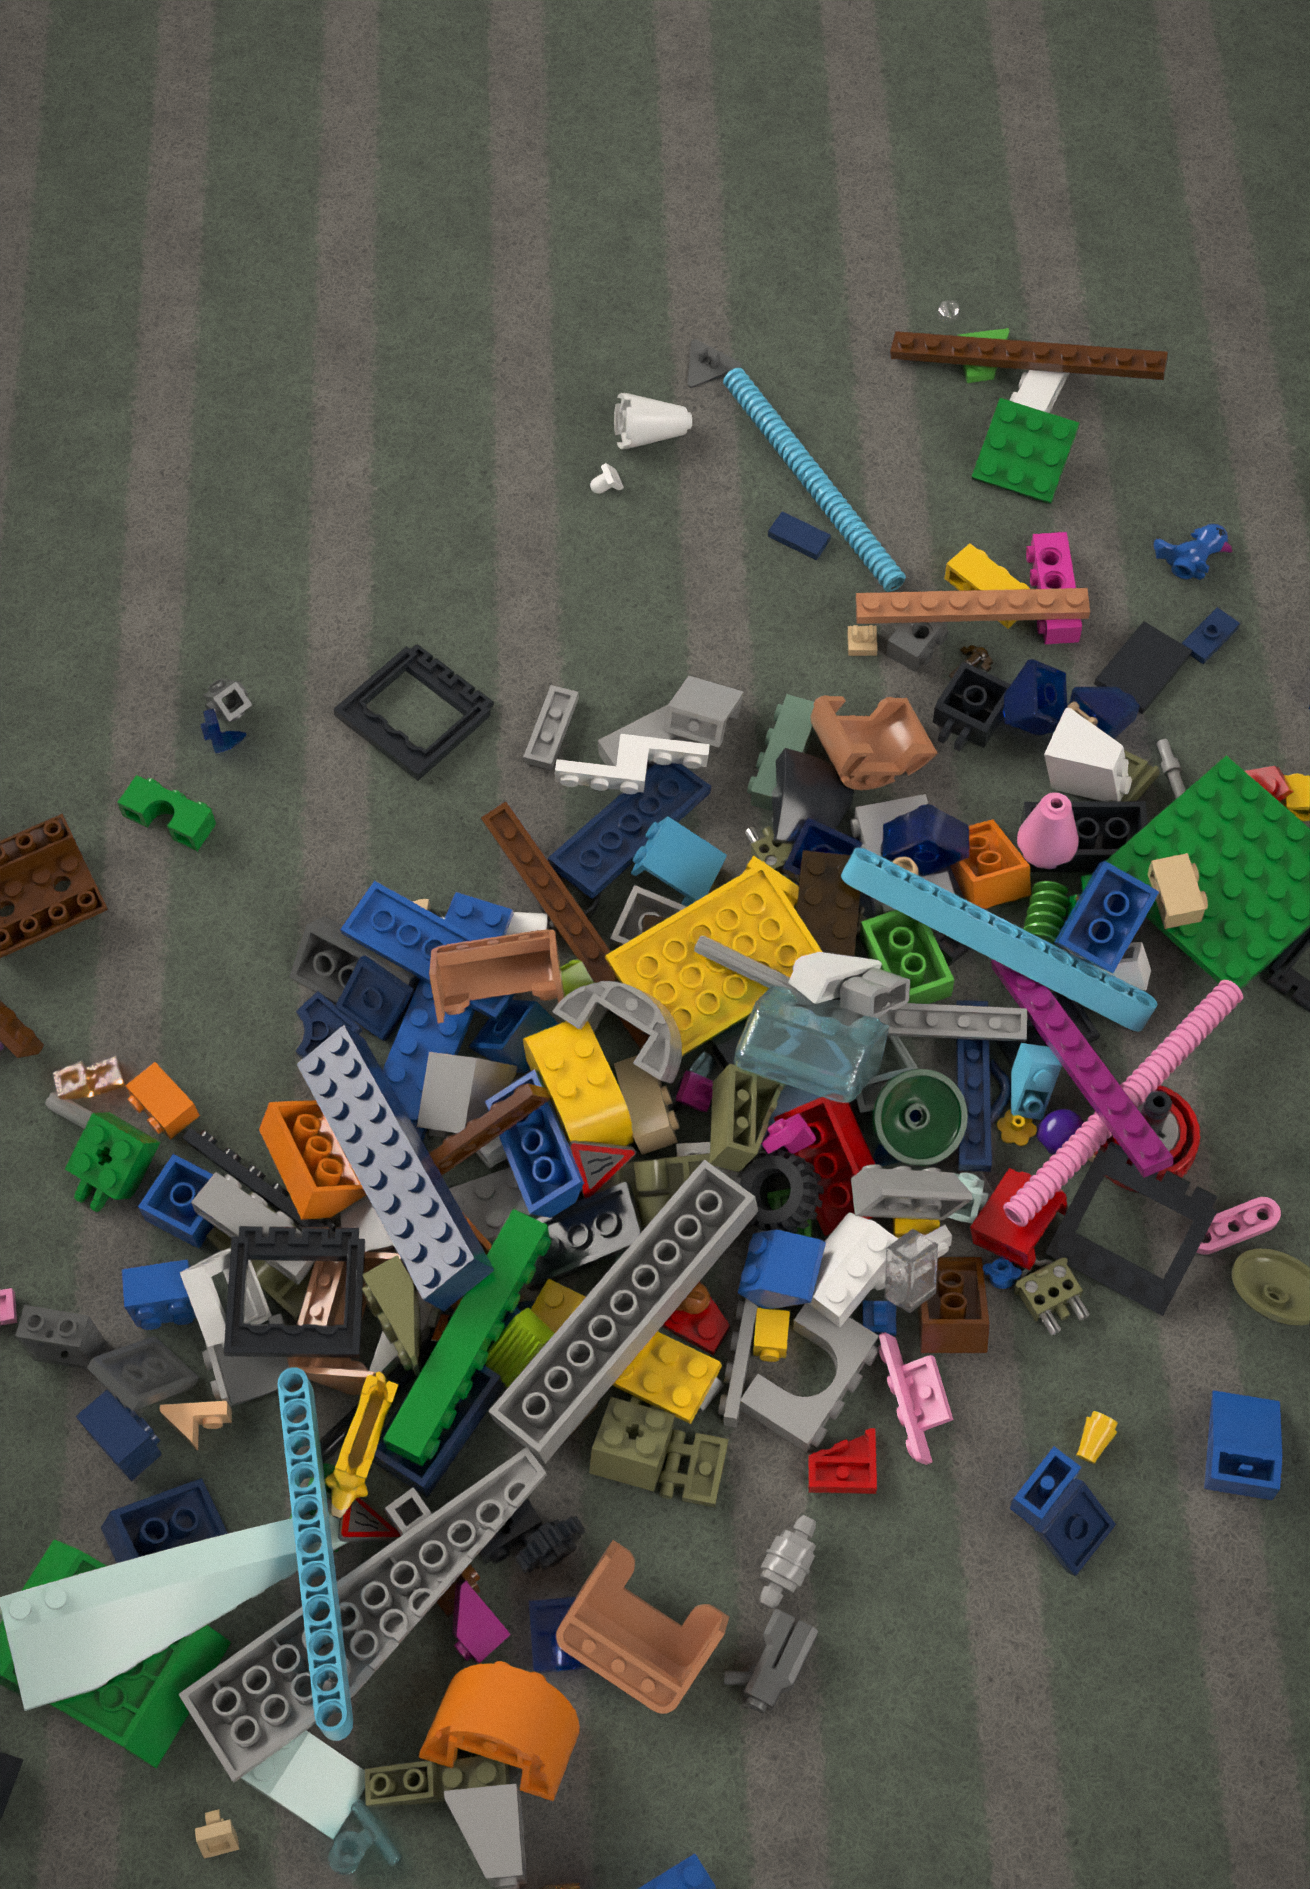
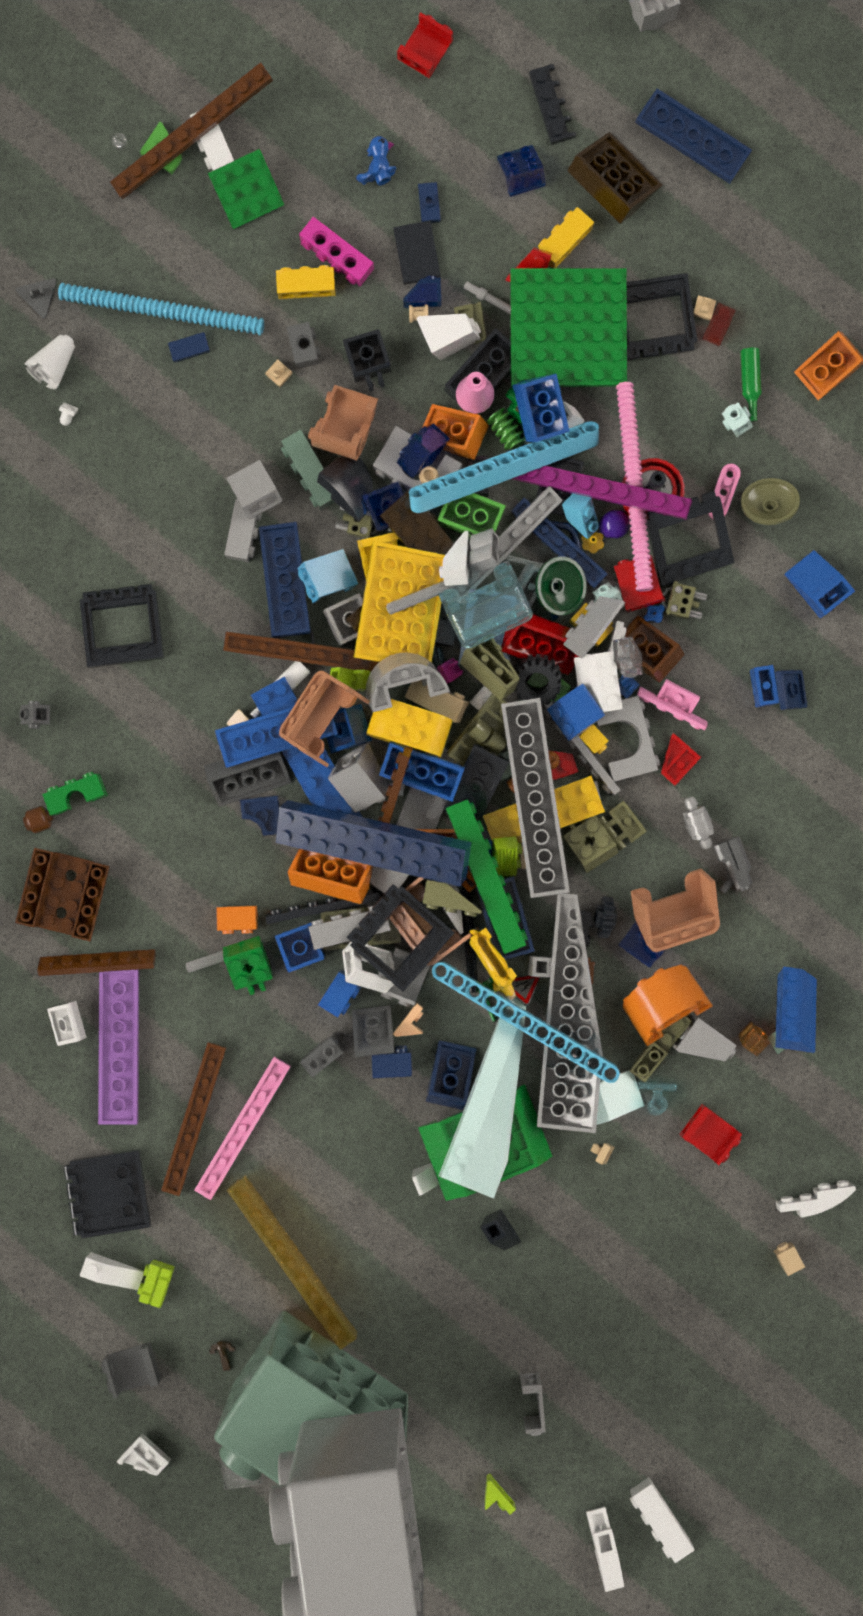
camera: 50 degrees left, 25 degrees up
(84, 1082) = (193, 943): clear orange slope -> none
(100, 797) = (37, 819): none -> reddish brown head
(220, 740) = (54, 733): clear blue plate -> none
(374, 998) = (271, 778): dark blue tile -> none
(475, 1625) = (611, 977): magenta slope -> none
(551, 727) = (192, 568): light grey plate -> none
(598, 1163) = (454, 750): piece -> none
(631, 763) = (256, 551): white bracket -> none
(790, 1133) = (519, 654): dark pink bracket -> none
(972, 605) = (314, 304): nougat plate -> none
(978, 655) = (339, 324): dark brown piece -> none
(1036, 698) = (396, 325): clear blue slope -> none
(1096, 1436) = (760, 642): yellow cone -> none
(1179, 895) = (560, 362): tan brick -> none

